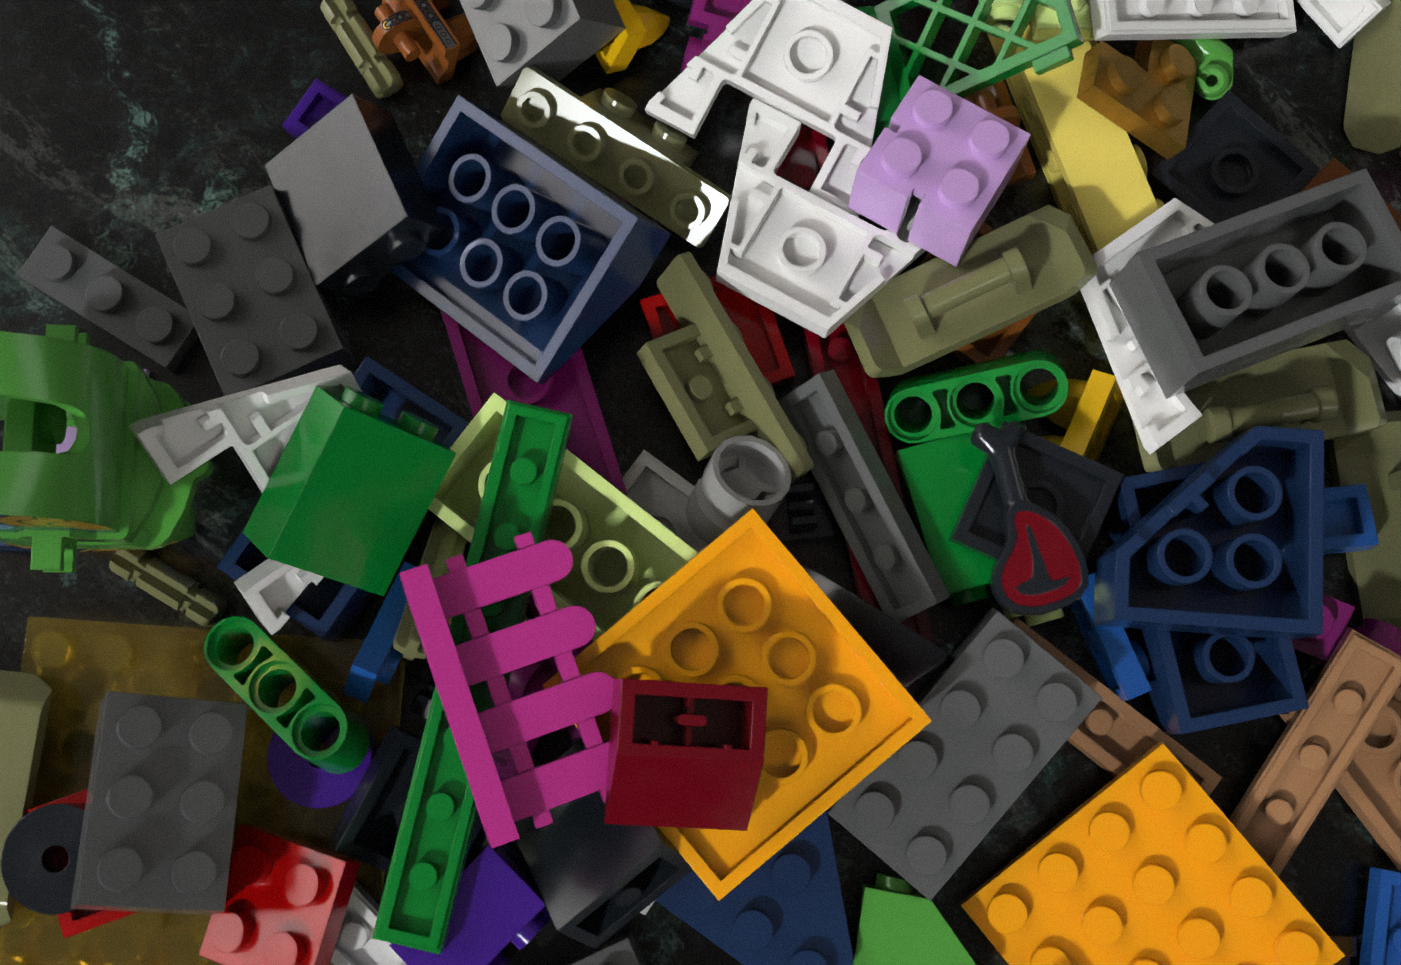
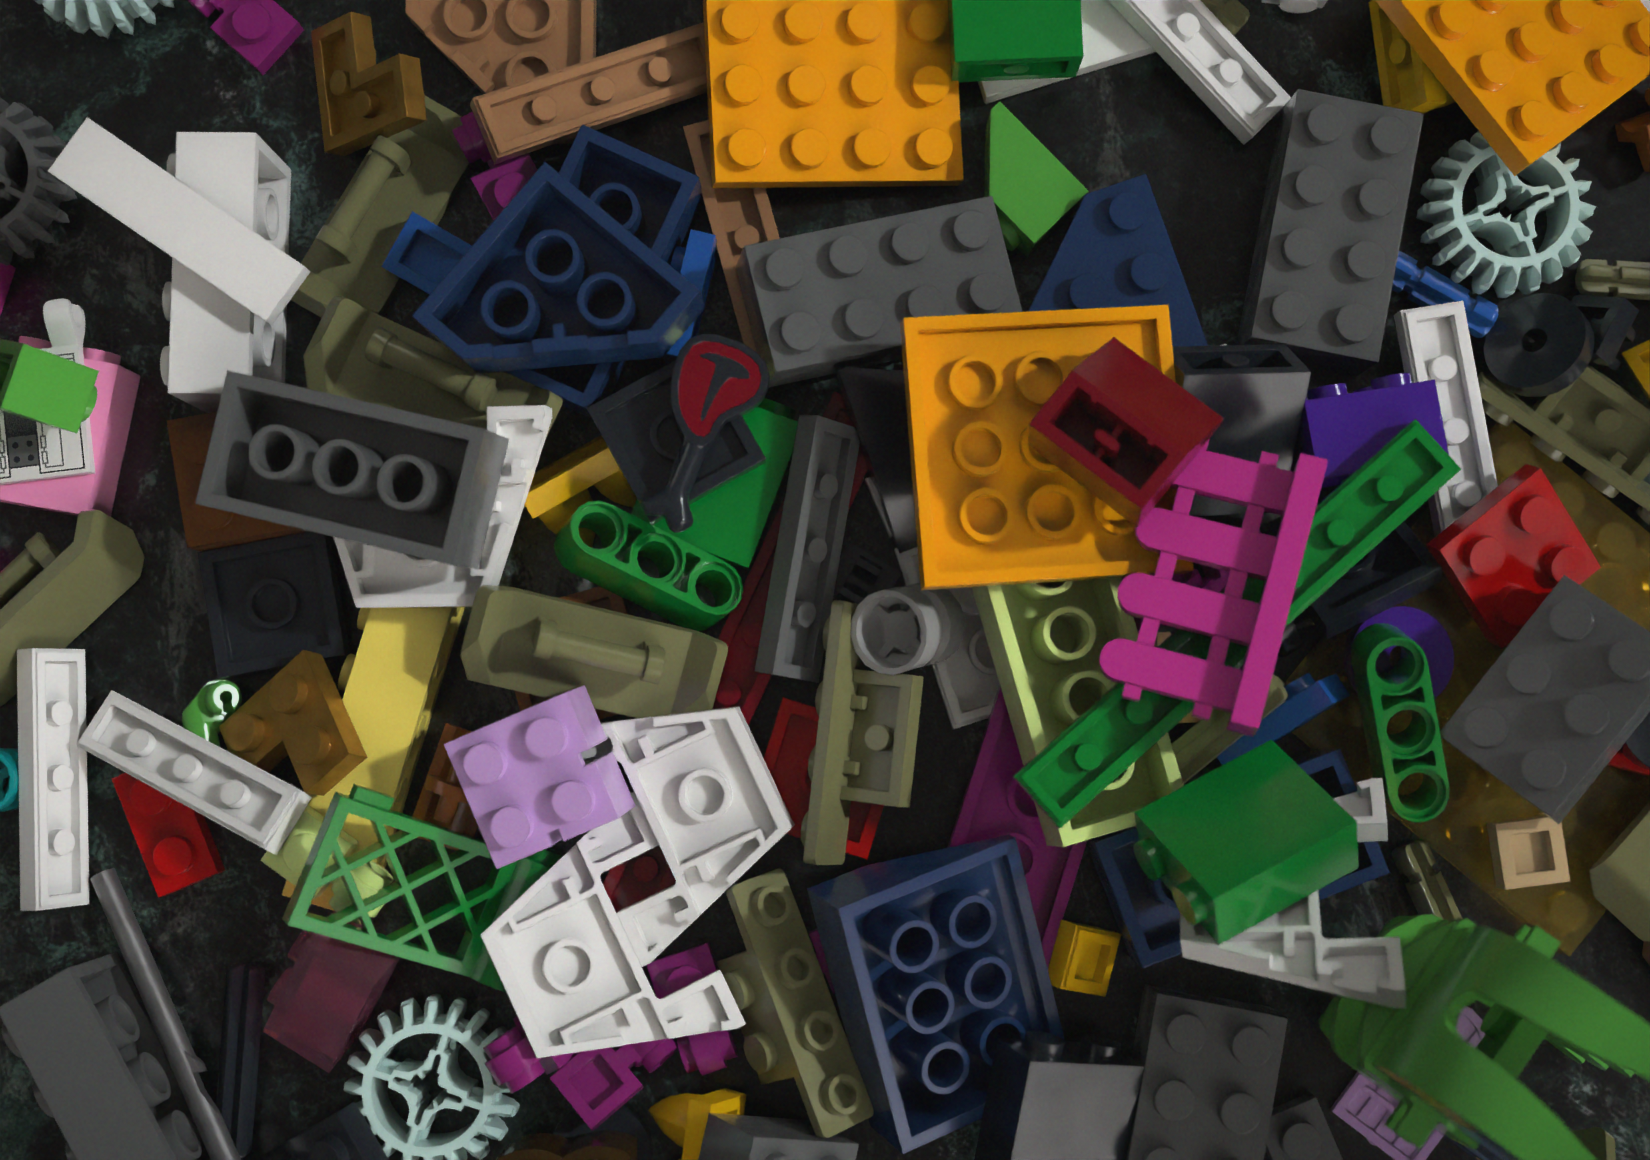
camera: 145 degrees left, 5 degrees up
(112, 664) = (1527, 852): none -> tan plate
(419, 344) = (1083, 958): none -> yellow tile
(719, 128) = (672, 972): none -> magenta plate

